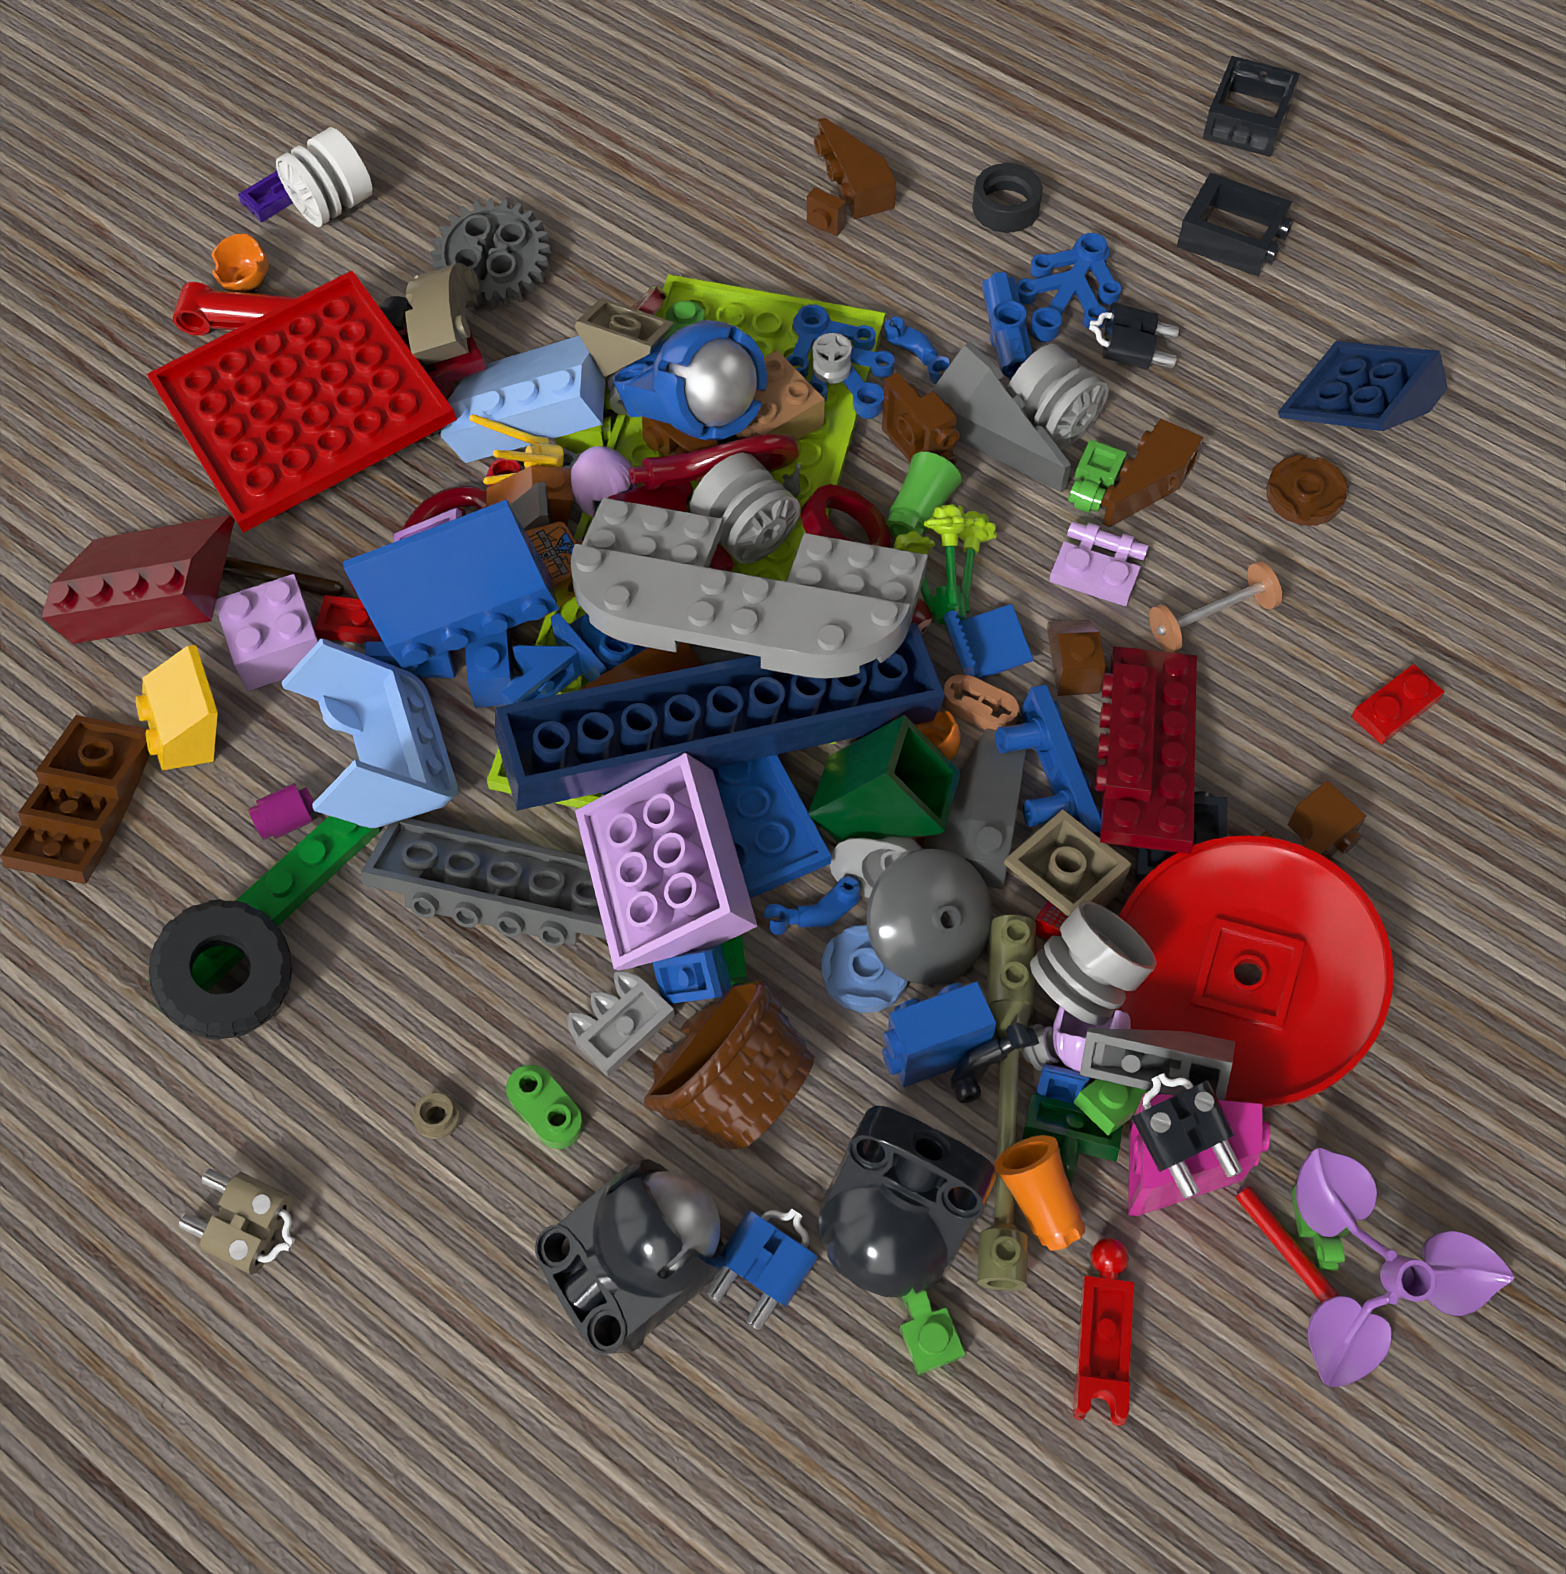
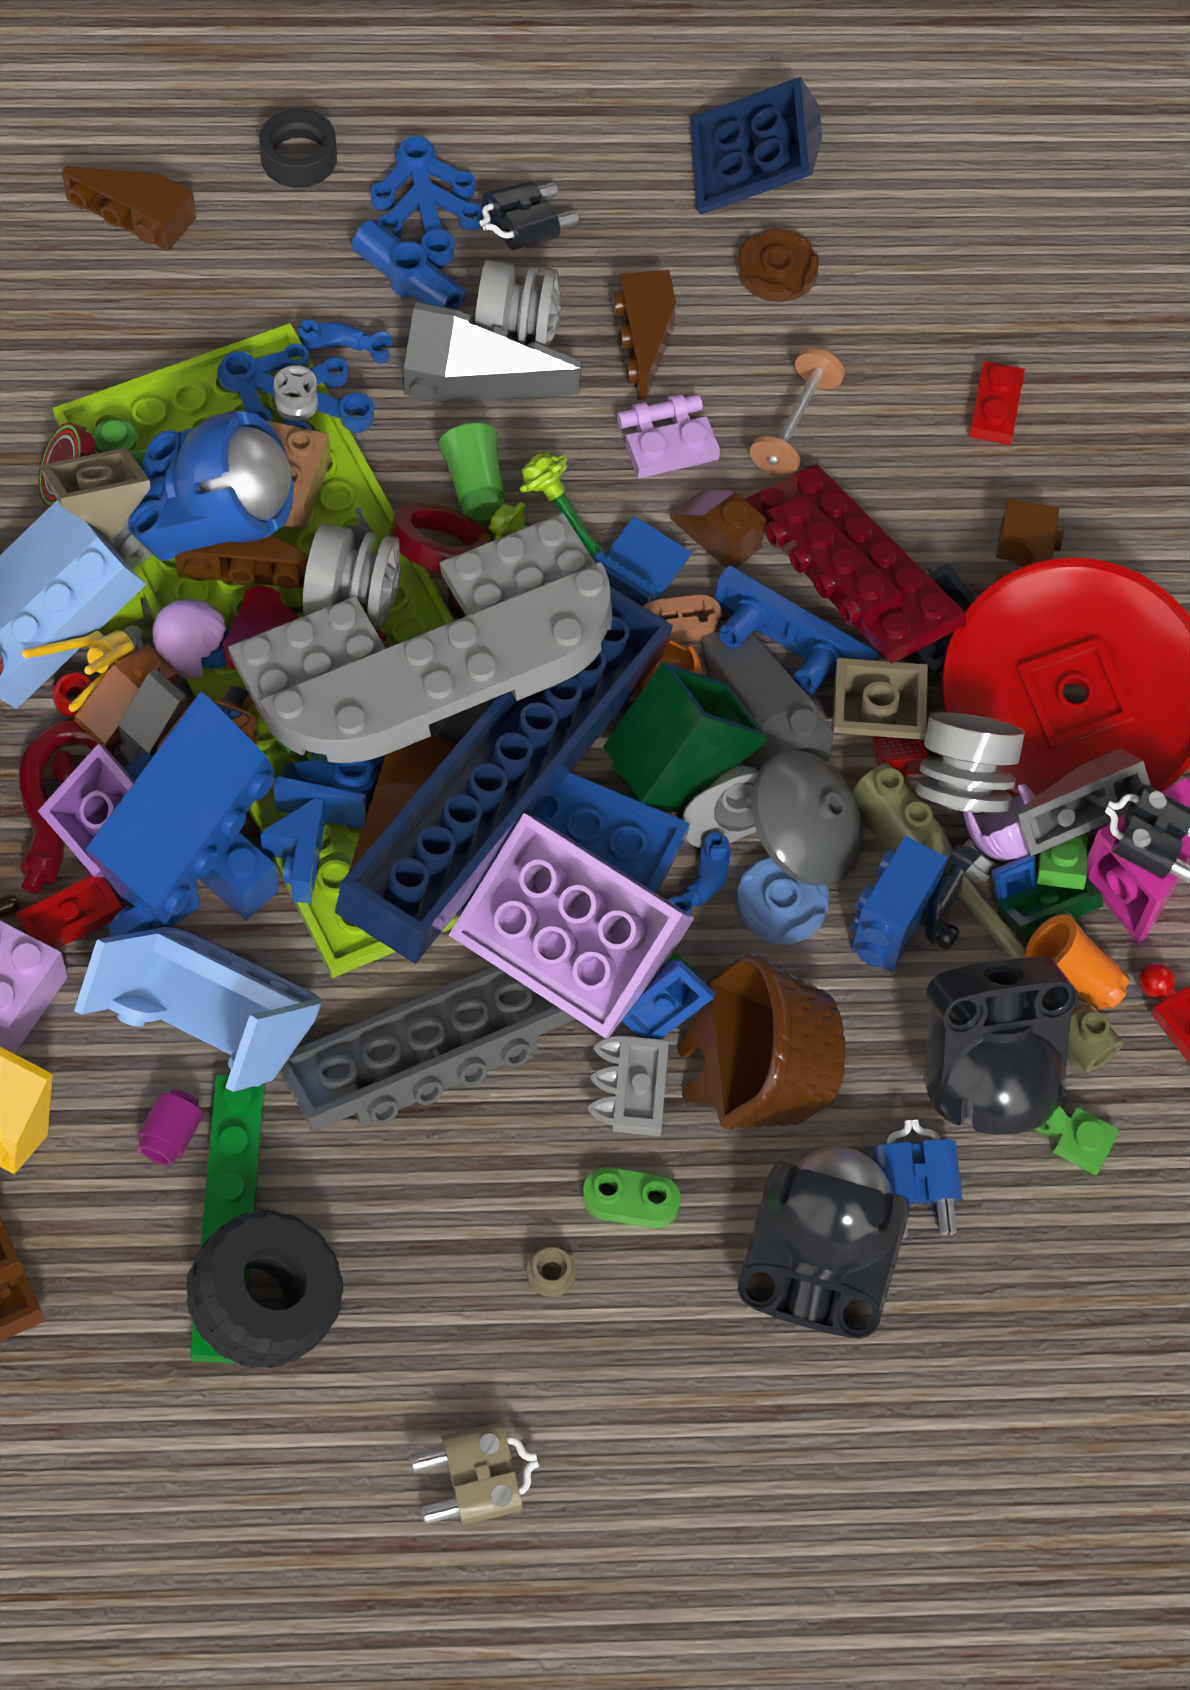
camera: 45 degrees left, 0 degrees up
(771, 450) = (247, 592): dark red plant -> none
(825, 211) = (144, 259): reddish brown plate -> none
(917, 421) = (422, 408): reddish brown plate -> none
(1098, 469) = (601, 351): bright green plate -> none
(1229, 246) = (528, 82): black window -> none

